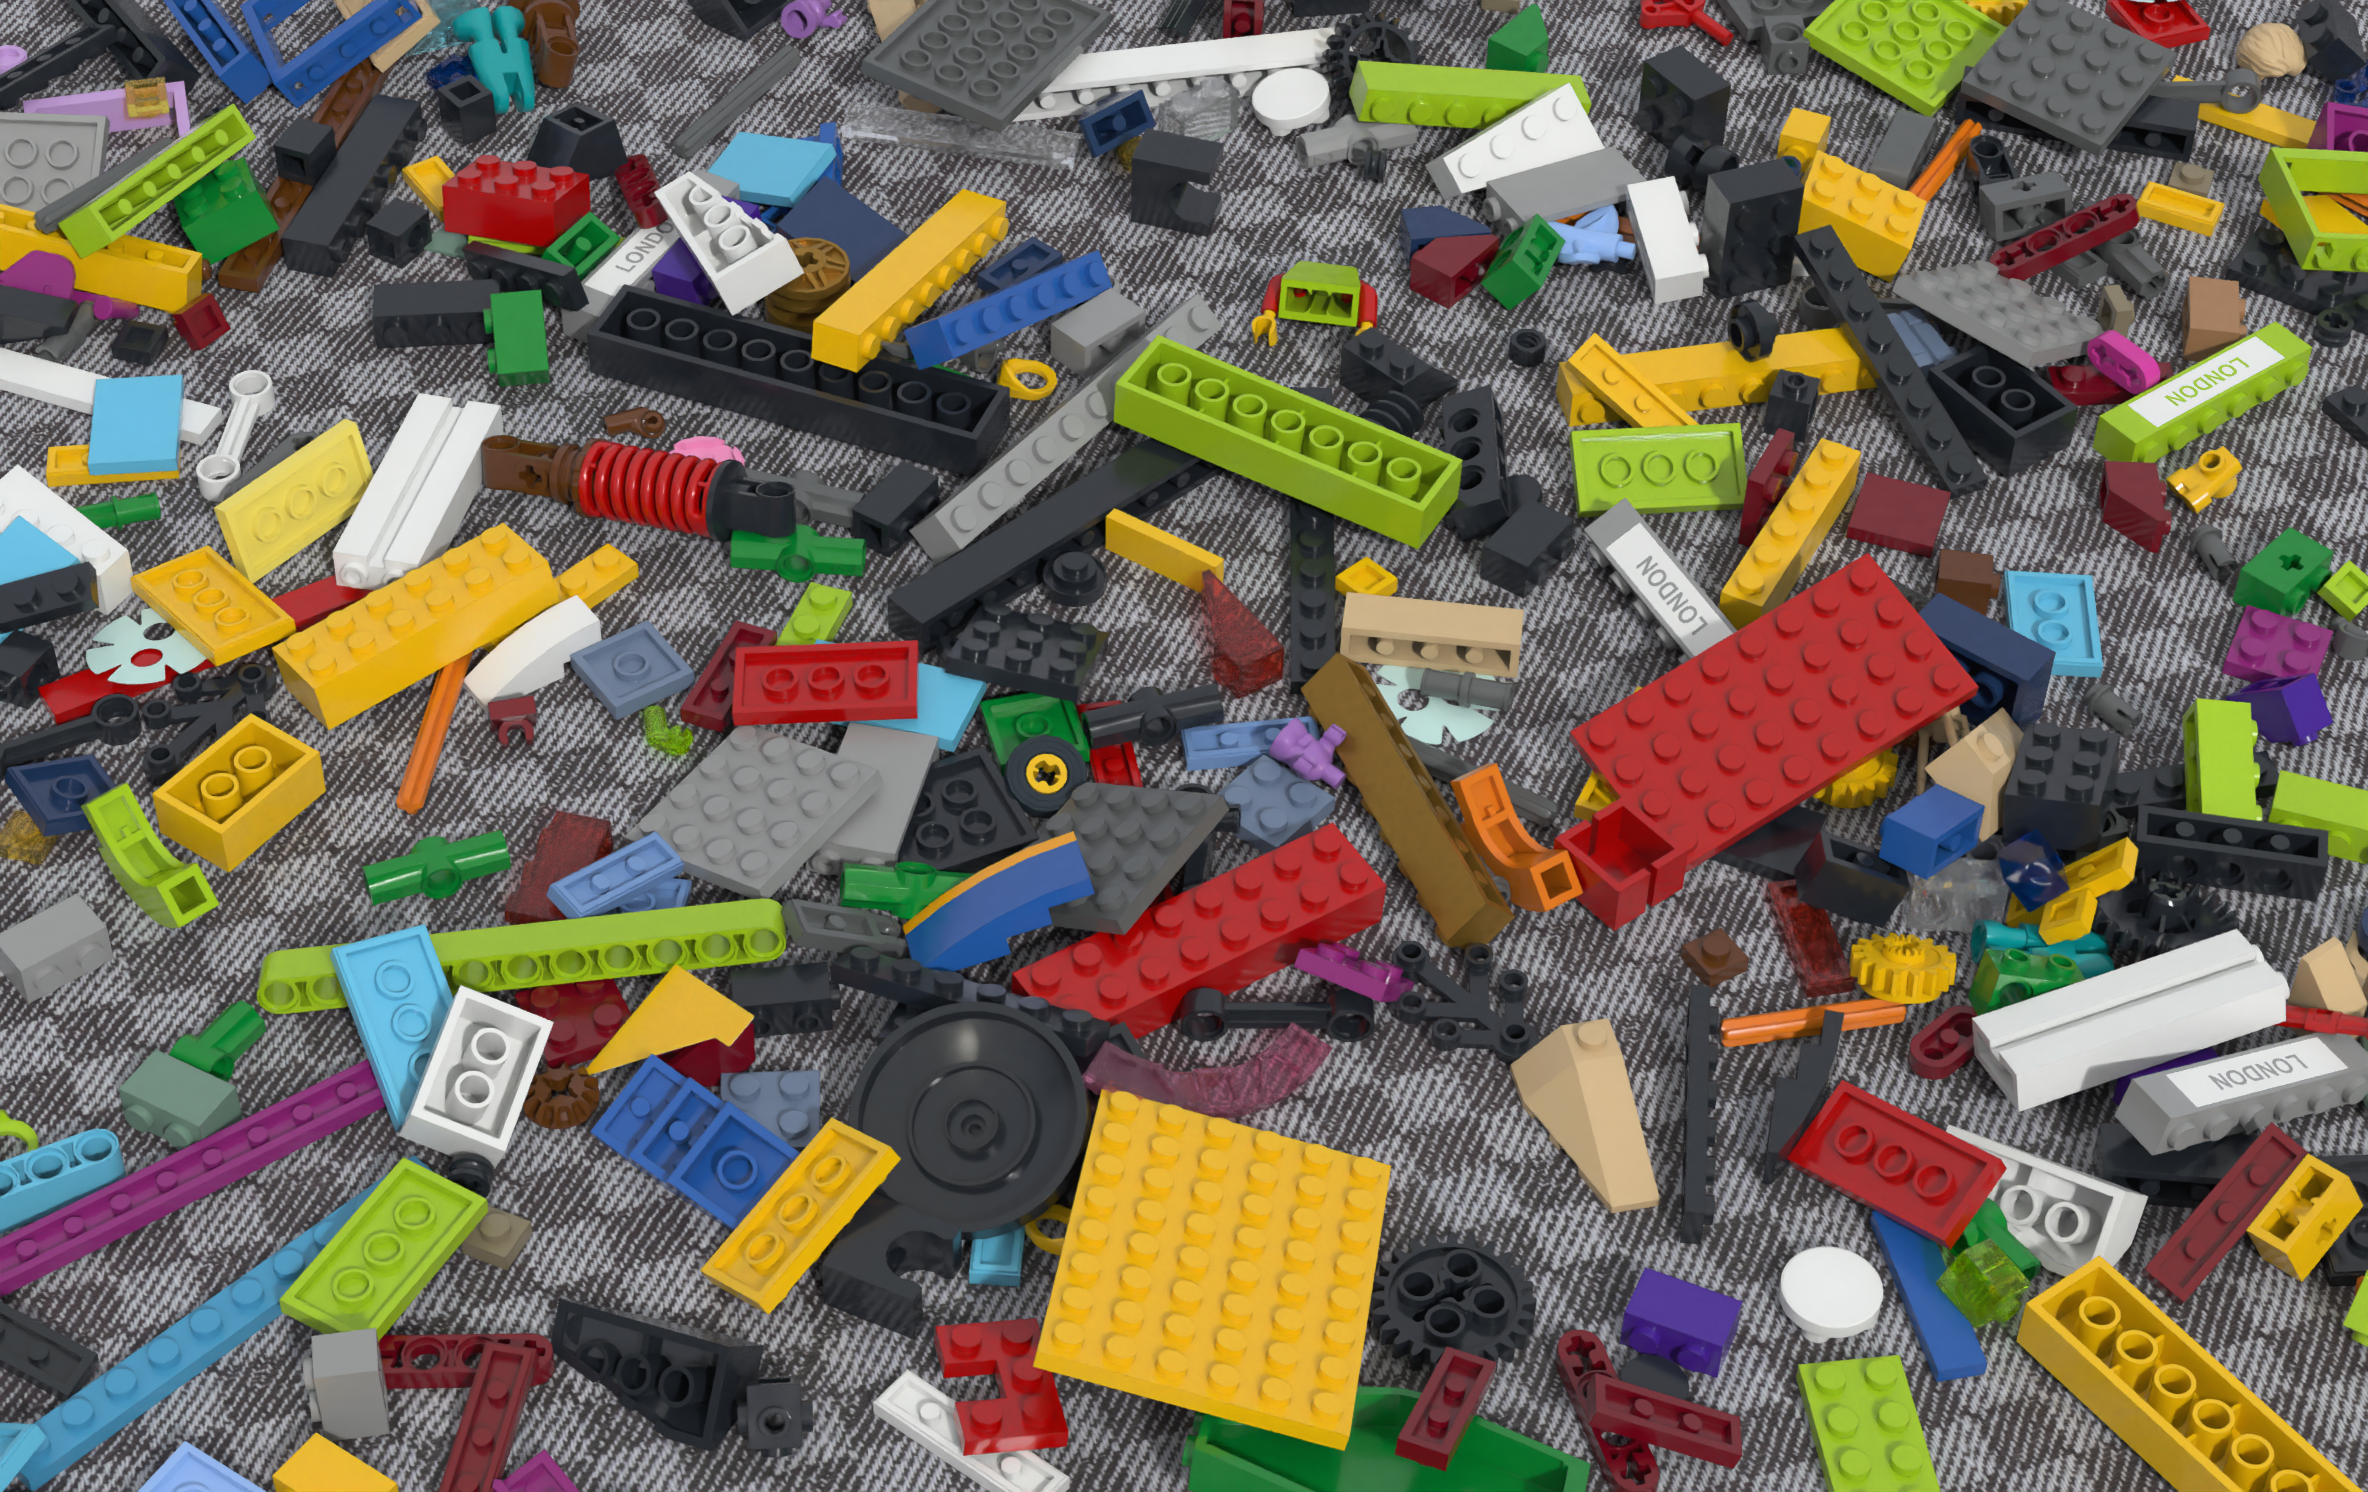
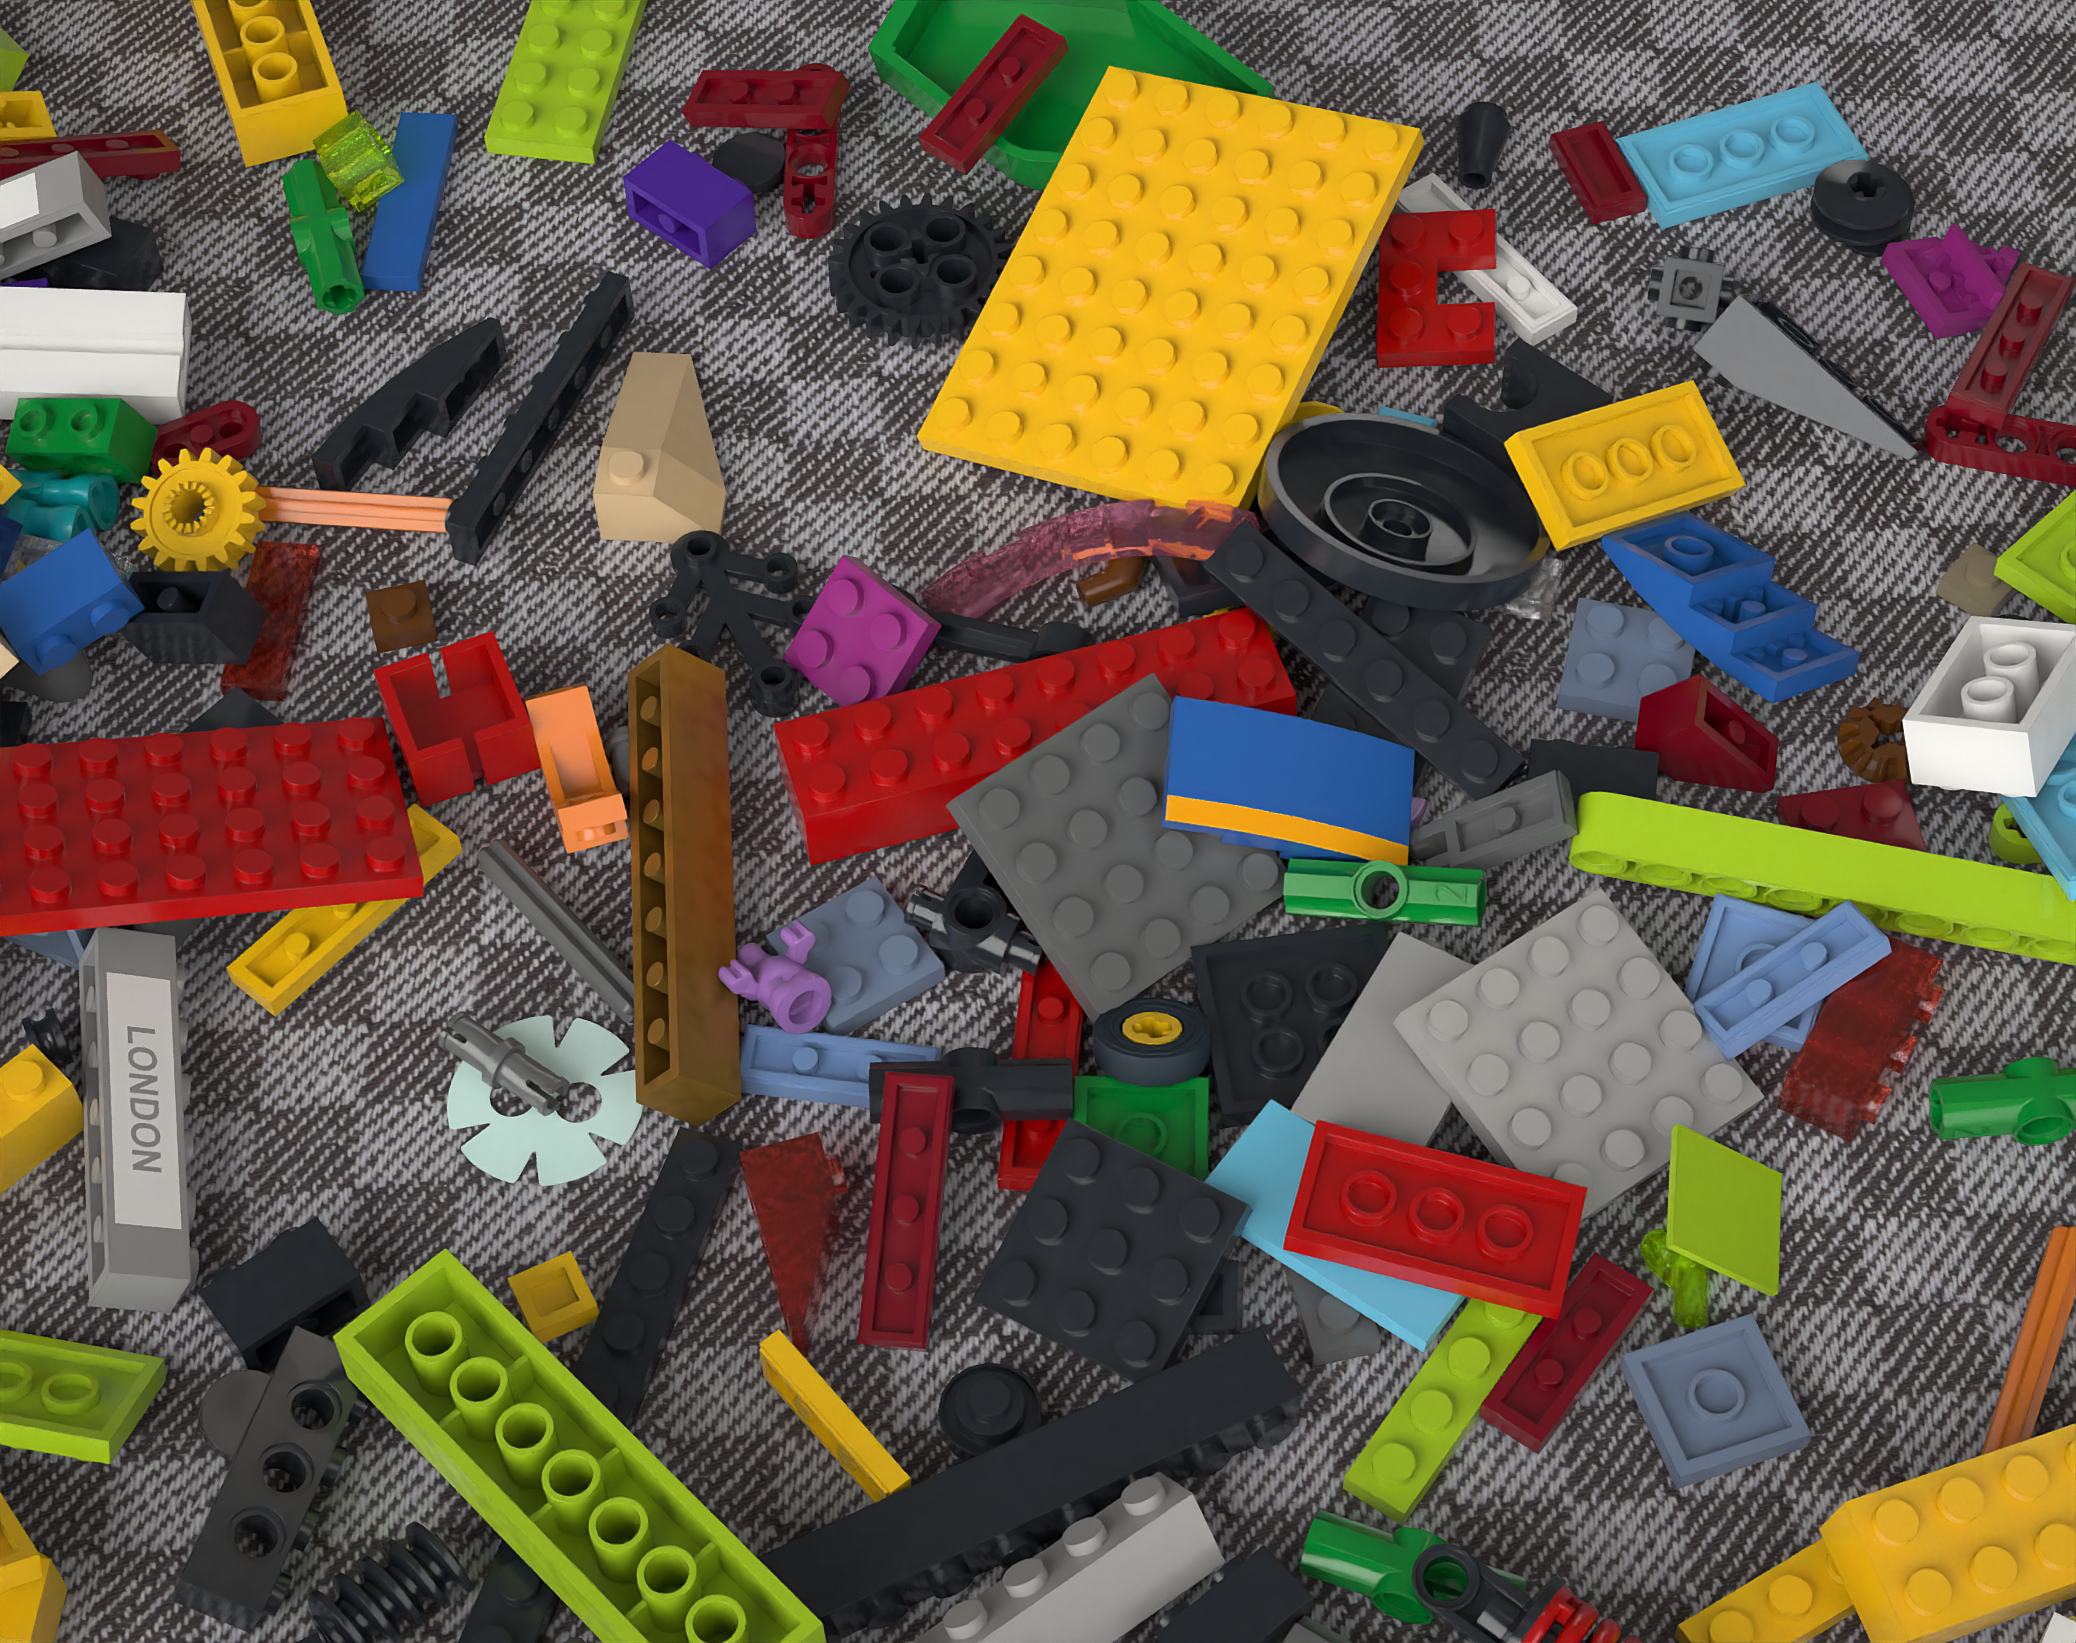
camera: 160 degrees left, 10 degrees up
(513, 714) = (1910, 1345): dark red tile -> none
(534, 653) = (1859, 1454): white slope -> none
(641, 757) = (1724, 1210): none -> lime piece
(673, 1017) = (1742, 745): yellow sticker -> none
(1166, 646) = (906, 1212): none -> dark red tile
(1431, 634) = (506, 1168): tan brick -> none
(1830, 1293) = (514, 210): white tile -> none
(1897, 1164) = (365, 271): red plate -> none
(2060, 1210) = (219, 226): white wedge -> none

